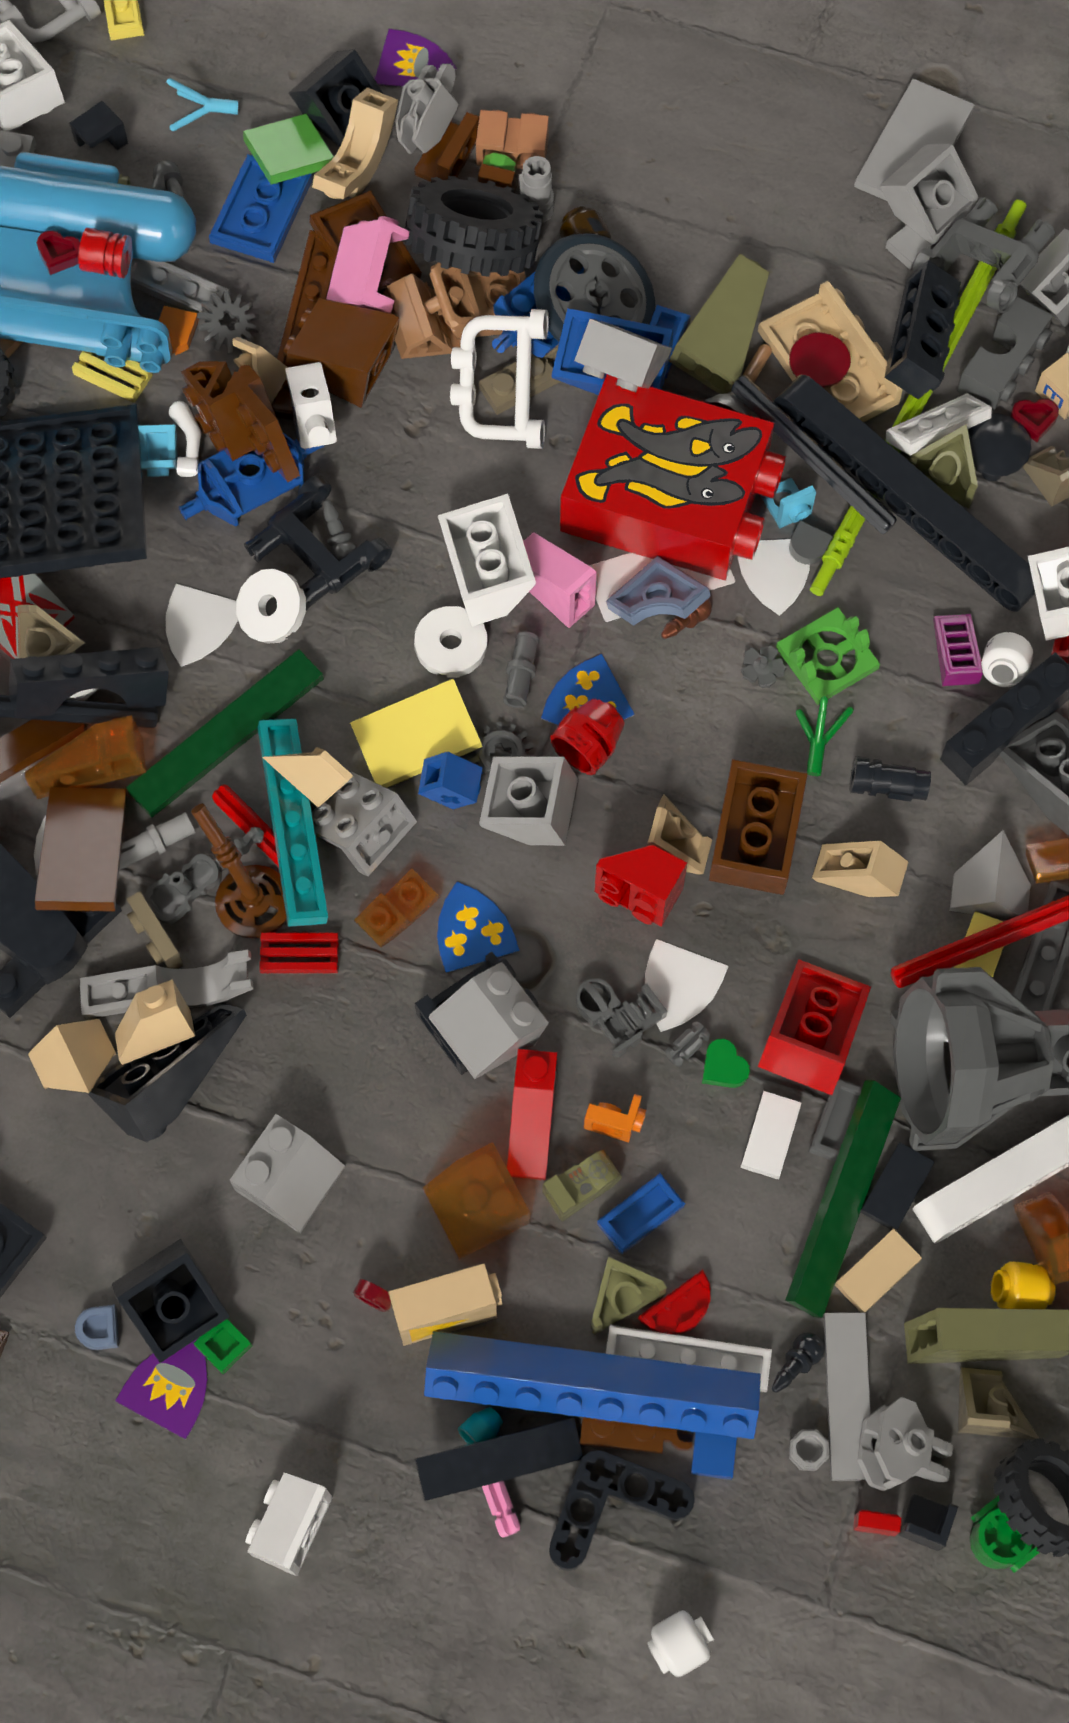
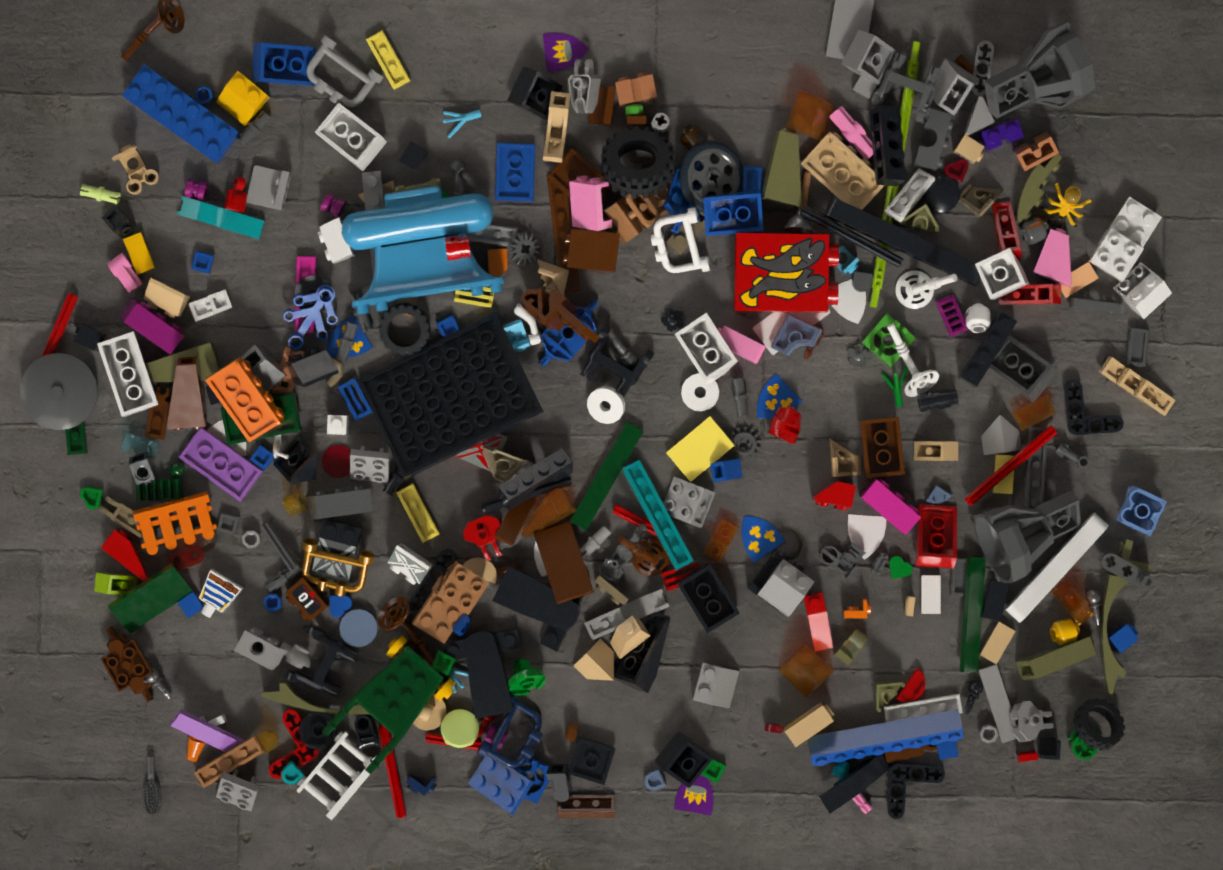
camera: 15 degrees left, 20 degrees up
(45, 402) = (448, 326): none -> blue tile
(58, 251) = (430, 251): dark red tile -> none
(197, 623) = (570, 420): white sticker -> none
(287, 148) = (518, 134): bright green tile -> none
(289, 1522) = (772, 839): white slope -> none
(312, 415) = (590, 294): white torso -> none
(312, 773) = (660, 488): tan slope -> none
(331, 997) = (708, 597): none -> black brick
(441, 505) = (673, 319): none -> black plant
(530, 799) = (767, 467): light grey slope -> none
(621, 355) = (742, 222): light grey slope -> none
(640, 1213) = (881, 650): blue tile -> none
(680, 1643) = (957, 834): white head -> none
(722, 1140) = (909, 605): none -> tan tile
(742, 934) = (890, 505): none -> dark pink brick
(798, 255) = (809, 116): none -> clear orange slope
(820, 358) = (838, 175): dark red piece -> none
(840, 955) = (938, 495): none -> sand blue tile
(862, 724) = (923, 383): none -> white dish
(865, 300) = (852, 132): none -> bright pink piece
(907, 582) = (919, 288): none -> white dish
(989, 1407) = (1063, 688): dark tan slope -> none

